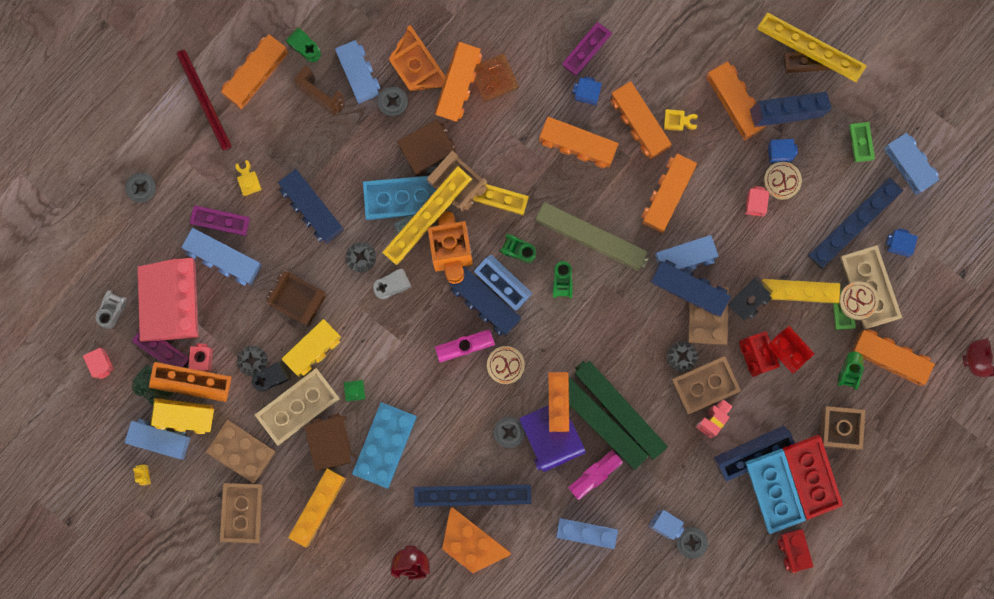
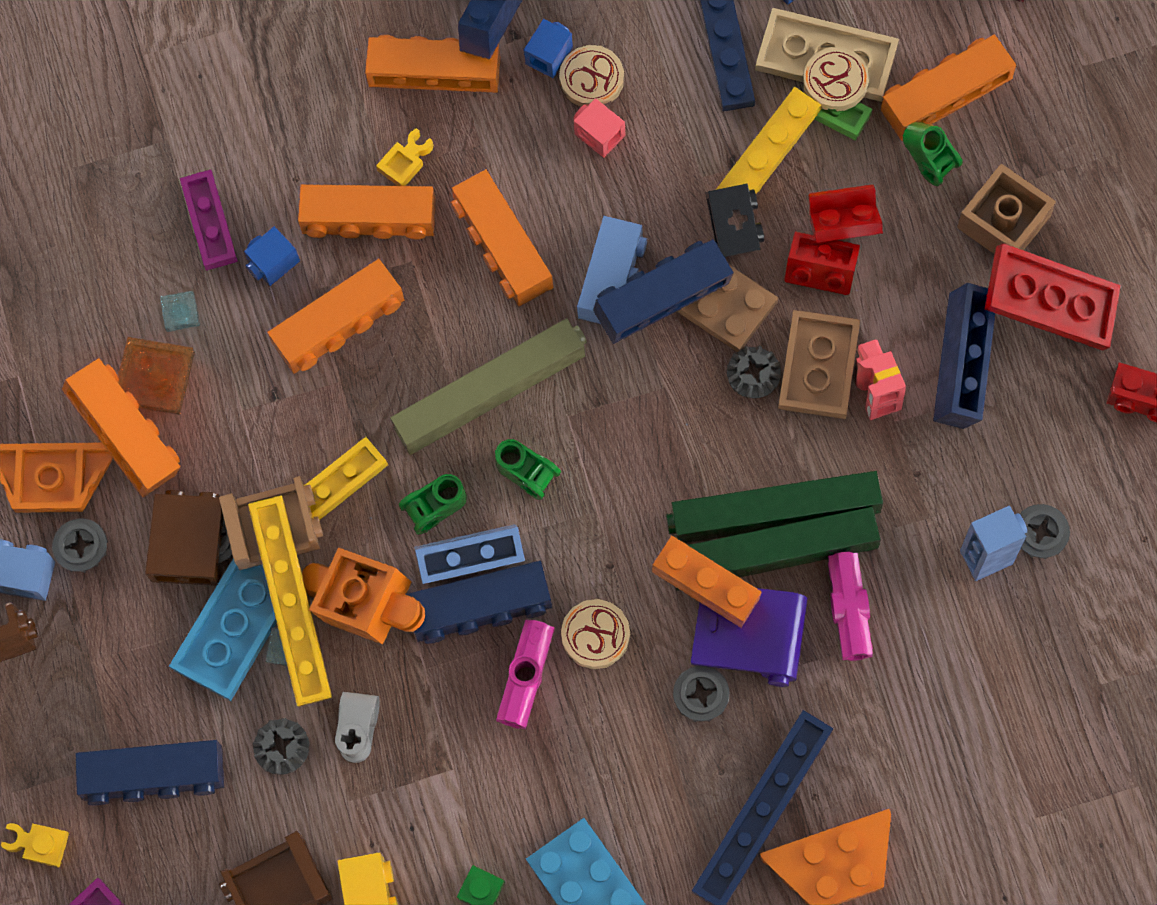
camera: 55 degrees left, 10 degrees down
(533, 67) = (179, 311): none -> clear light blue plate
(586, 533) = (930, 673): medium blue brick -> none
(775, 491) = (1040, 361): dark azure plate -> none

